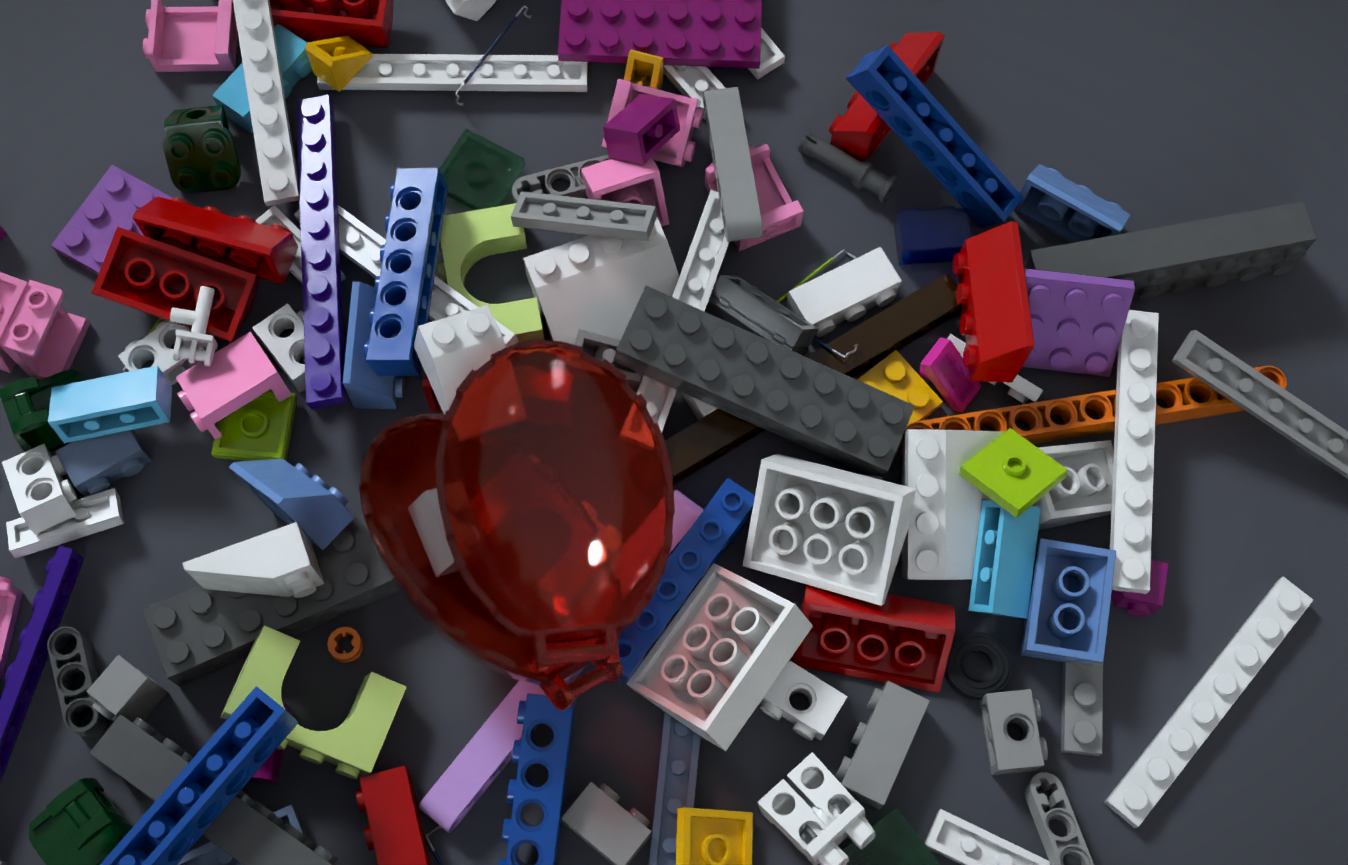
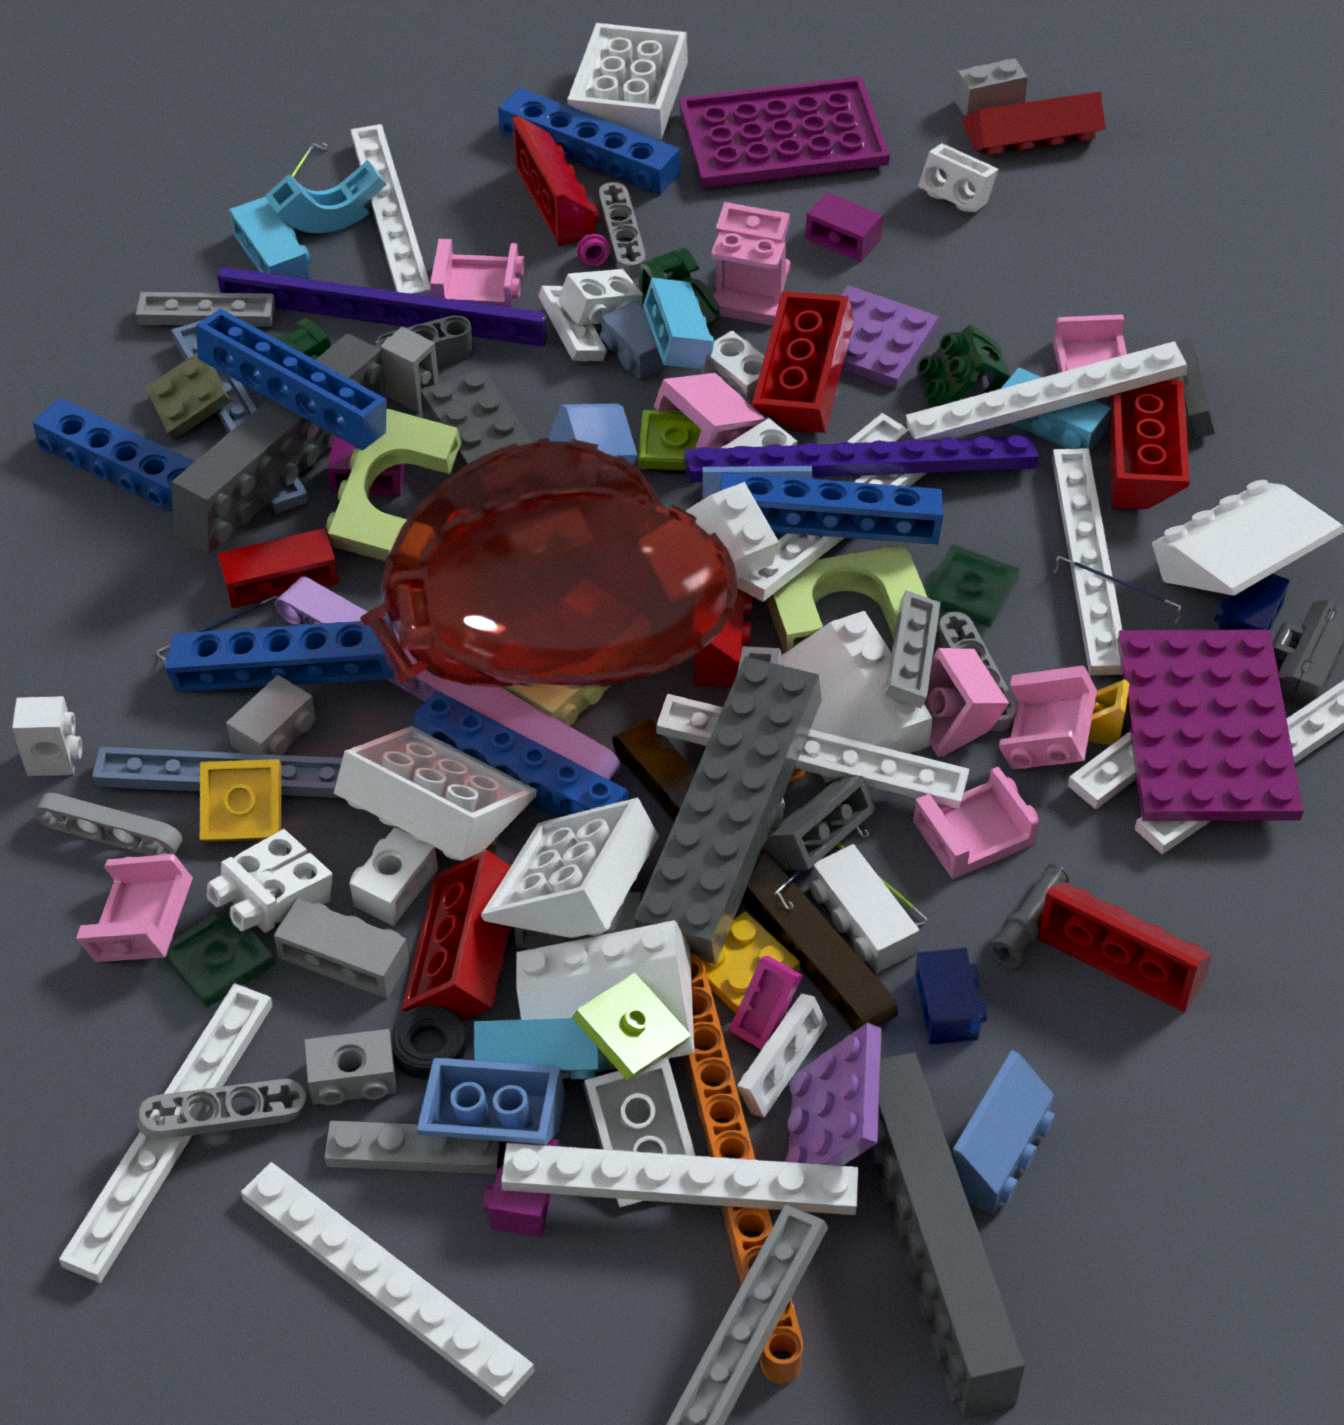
camera: 90 degrees right, 20 degrees down
(197, 336) = (740, 371): white arm -> none
(220, 237) = (858, 377): red slope -> none
(267, 564) = (512, 408): white slope -> none
(337, 60) = (1075, 452): yellow slope -> none
(641, 128) = (1027, 691): magenta brick -> none
(732, 164) = (998, 777): light grey beam -> none
(934, 137) = (1052, 951): blue brick -> none
(994, 304) = (818, 1020): red slope -> none

